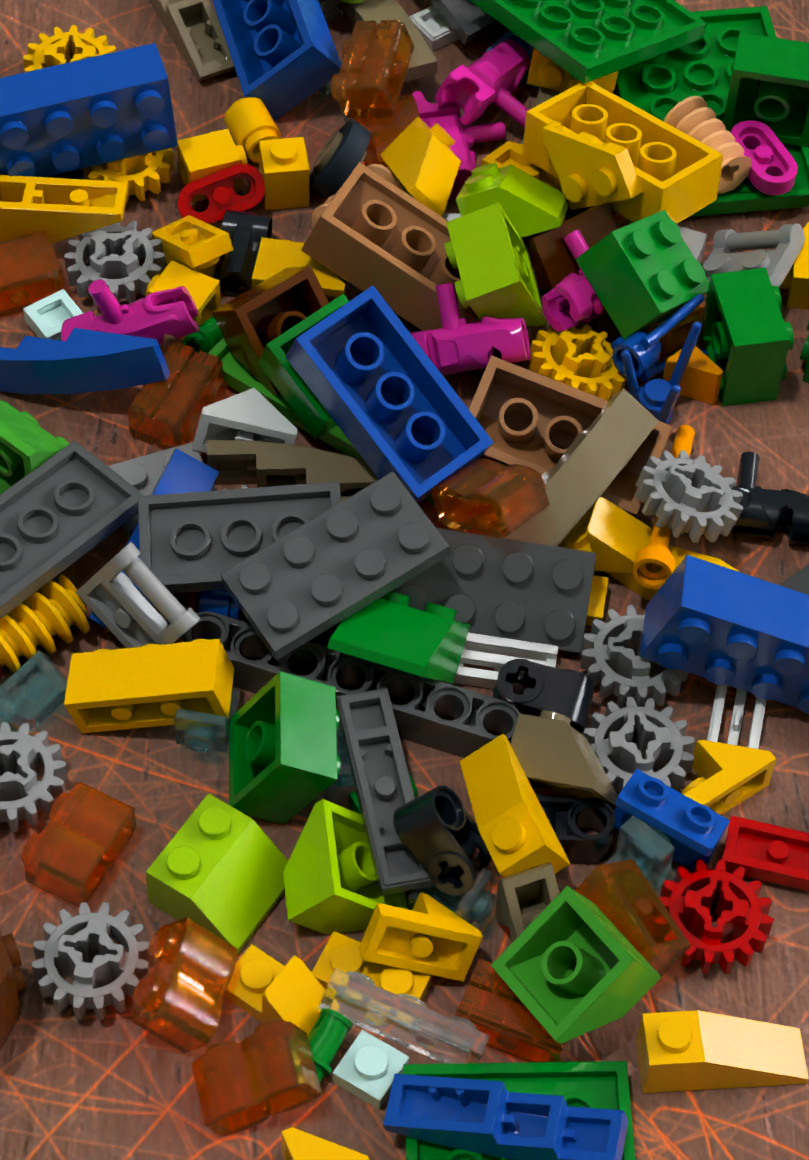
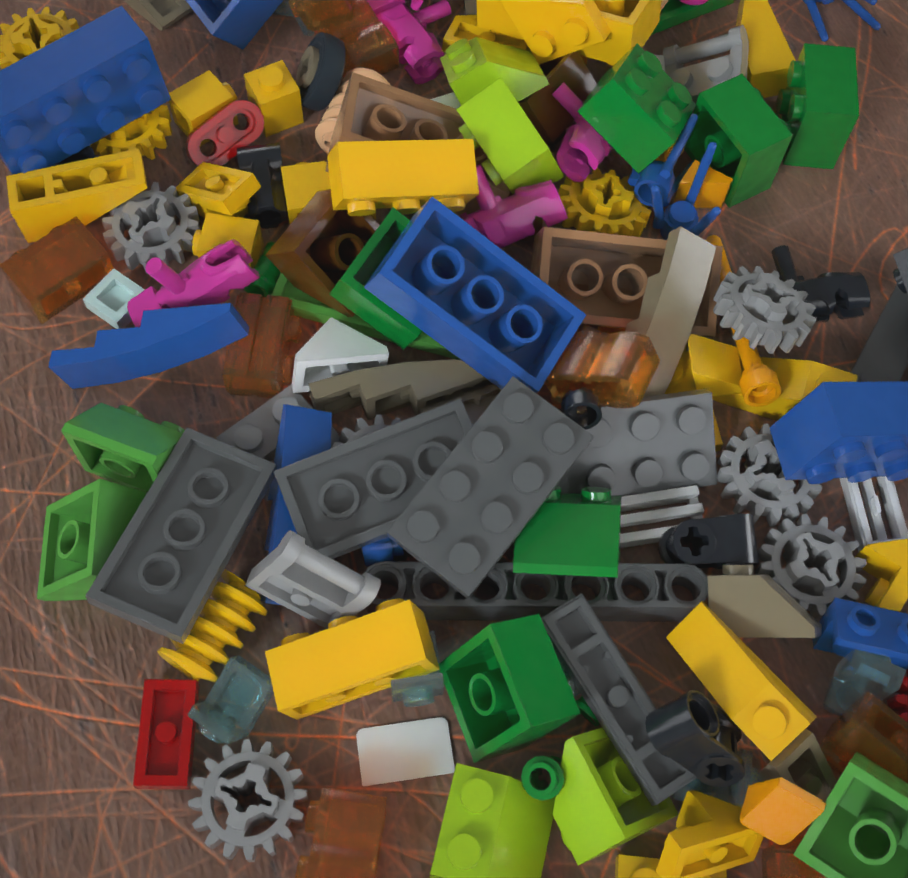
camera: 20 degrees left, 10 degrees up
(168, 788) = (404, 751): none -> white sticker
(250, 122) = (227, 61): yellow brick -> none
(284, 832) = (542, 789): none -> green pin
(351, 260) = (402, 175): none -> yellow brick
(424, 163) = (401, 55): yellow slope -> none
(445, 521) = (582, 397): none -> black hinge
(491, 920) = (779, 809): none -> light orange slope
(571, 816) = (781, 662): black piece -> none

